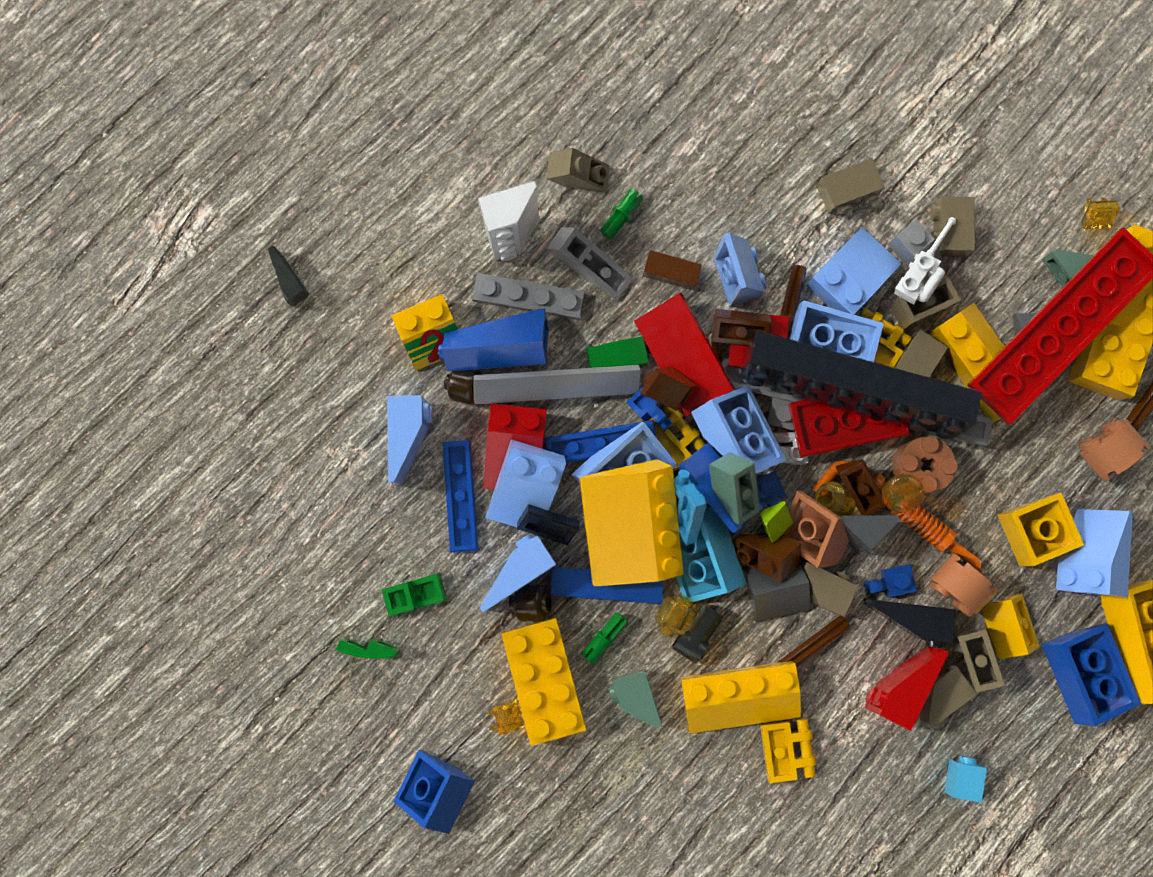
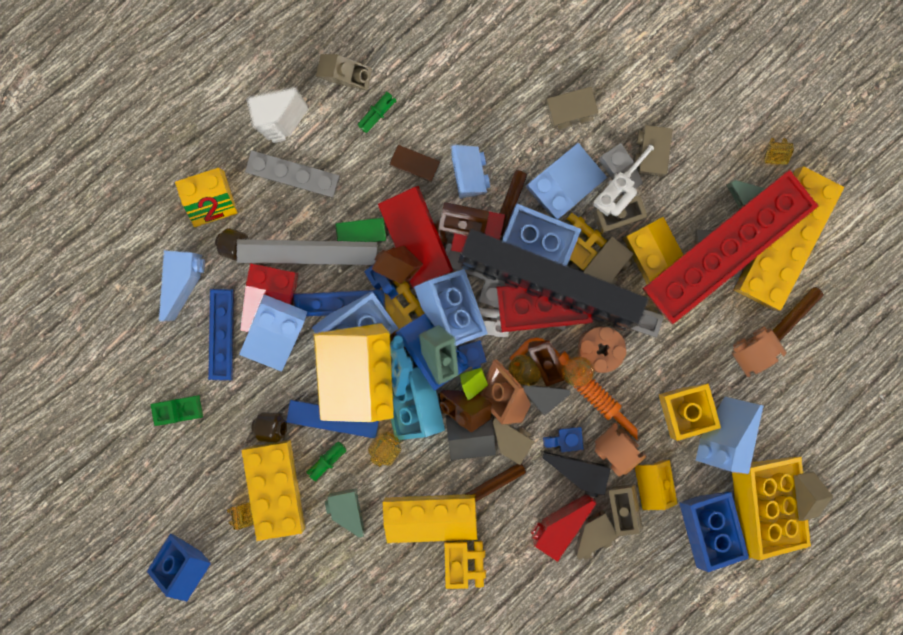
camera: 15 degrees right, 5 degrees up
(290, 284) = (94, 142): pearl dark grey slope -> none
(375, 650) = (141, 451): green slope -> none
(498, 343) = (262, 213): blue slope -> none
(521, 567) = (263, 398): light blue slope -> none
(548, 524) = (288, 366): black tile -> none
(589, 261) = (346, 151): light grey slope -> none
(695, 642) = (399, 470): pearl dark grey piece -> none
(965, 779) = (602, 601): medium azure brick -> none

